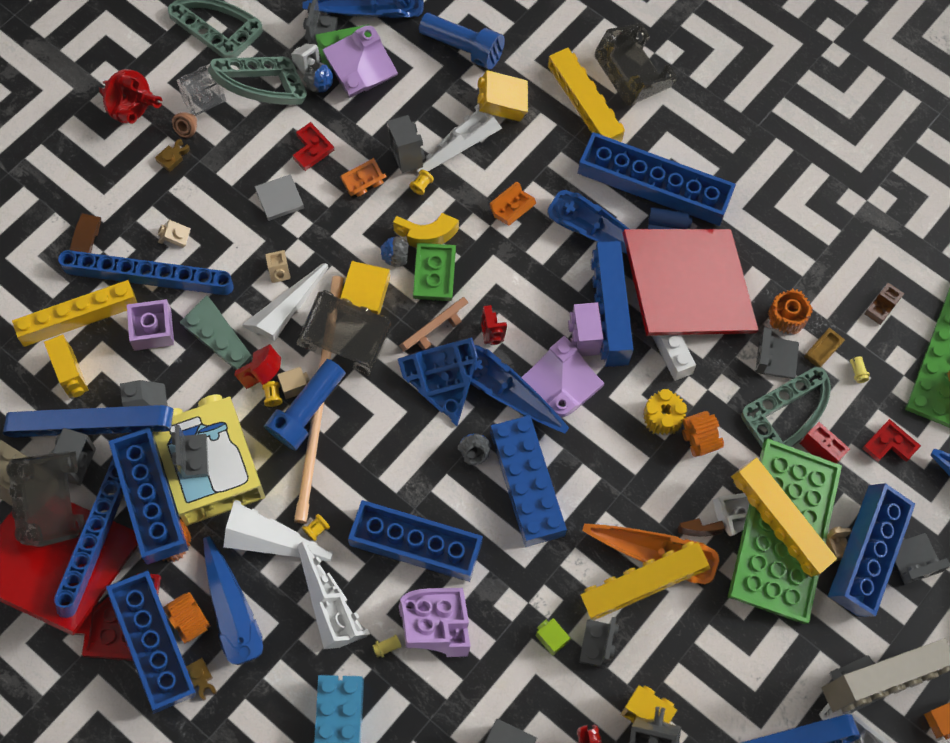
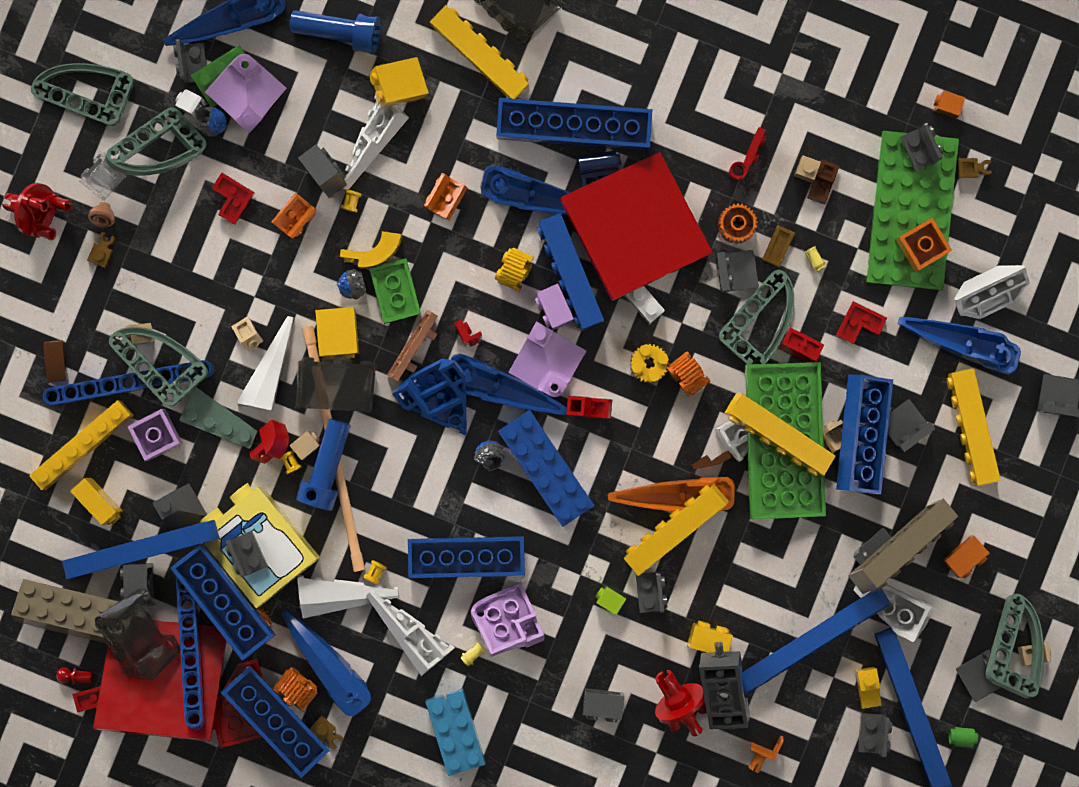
camera: 10 degrees left, 20 degrees up
(186, 285) = (153, 373): none -> sand green beam
(279, 197) = (221, 261): light grey tile -> none
(557, 283) = (515, 268): none -> yellow brick
(589, 436) = (589, 407): none -> red brick
(819, 258) = (751, 157): none -> red plate
(872, 285) = (807, 169): none -> tan brick

